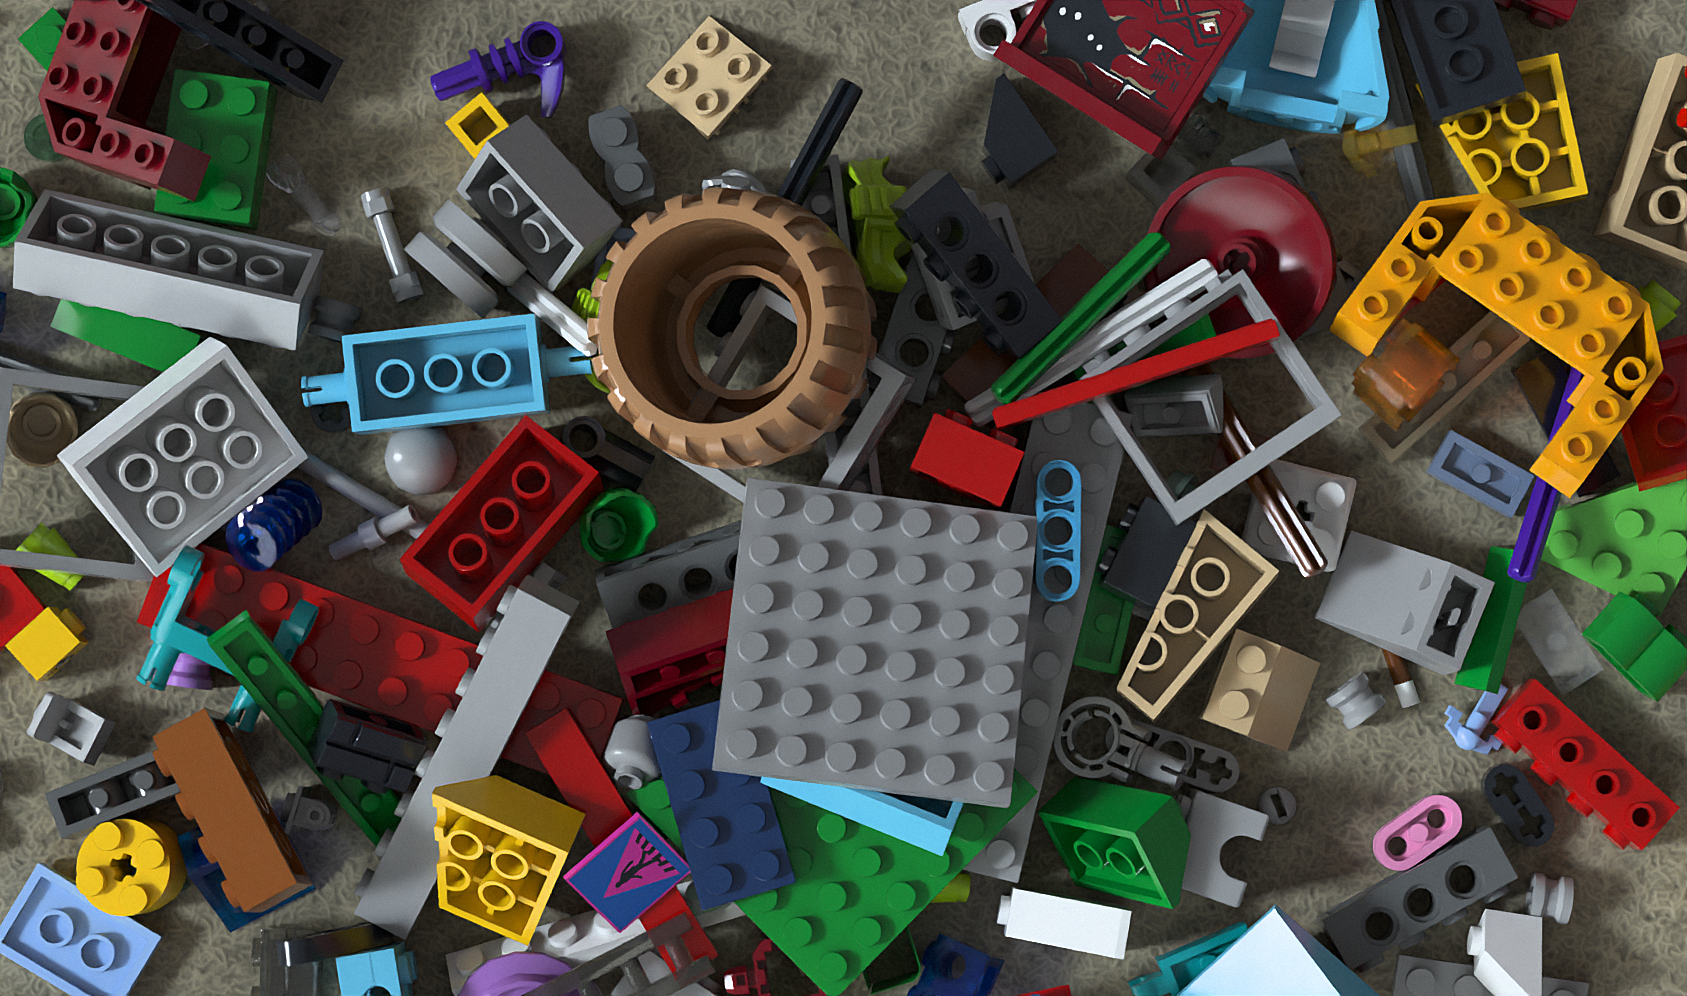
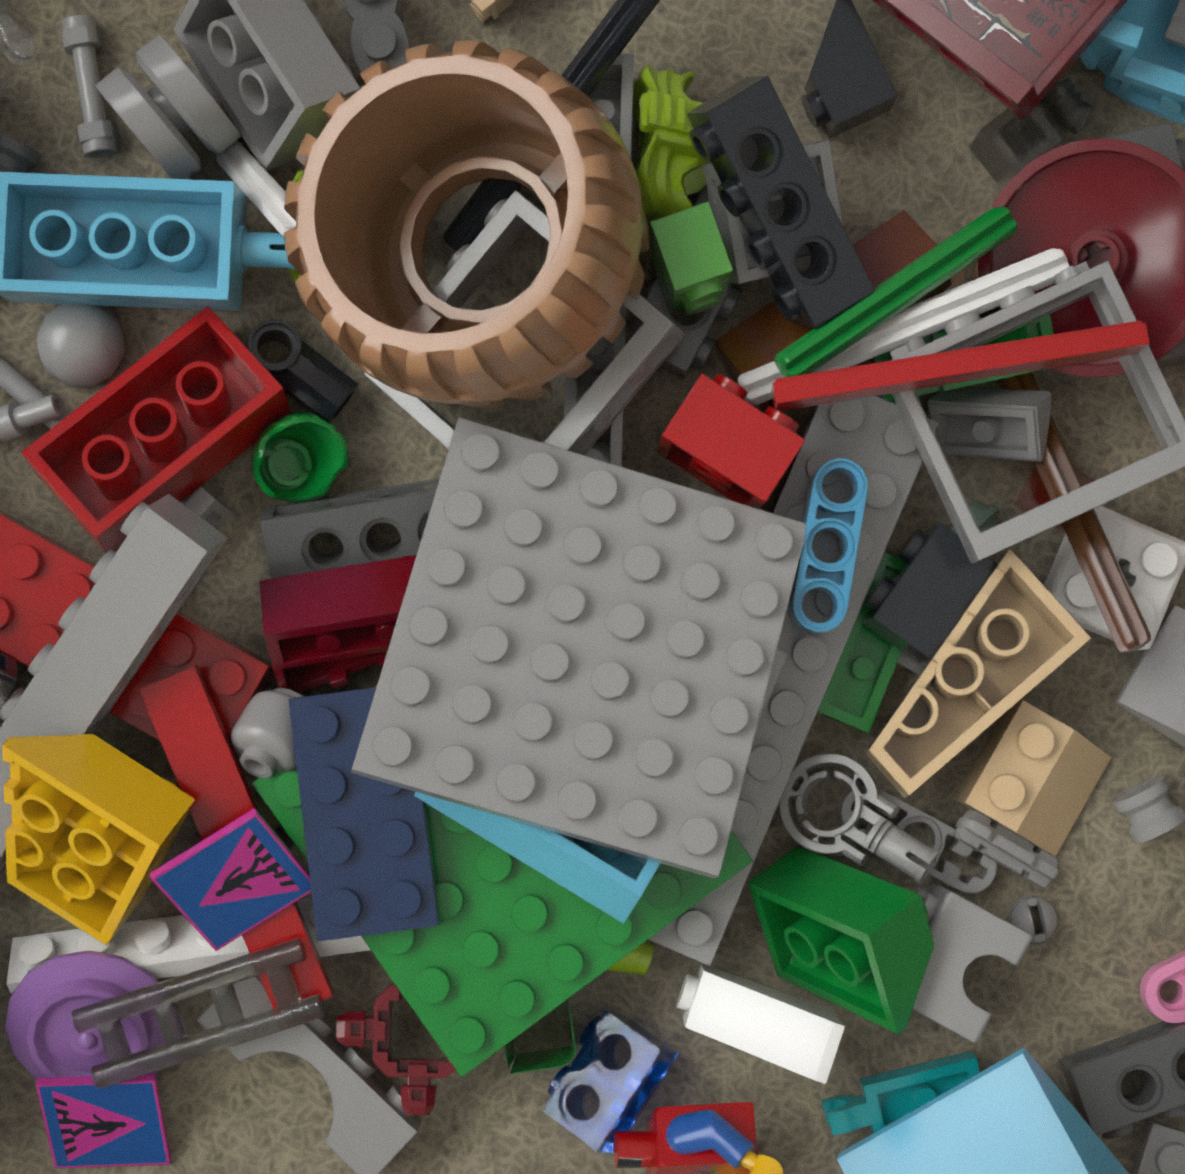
camera: 10 degrees right, 0 degrees up
(910, 319) = (690, 259): none -> bright green brick
(1244, 751) = (1006, 848): none -> light grey axle

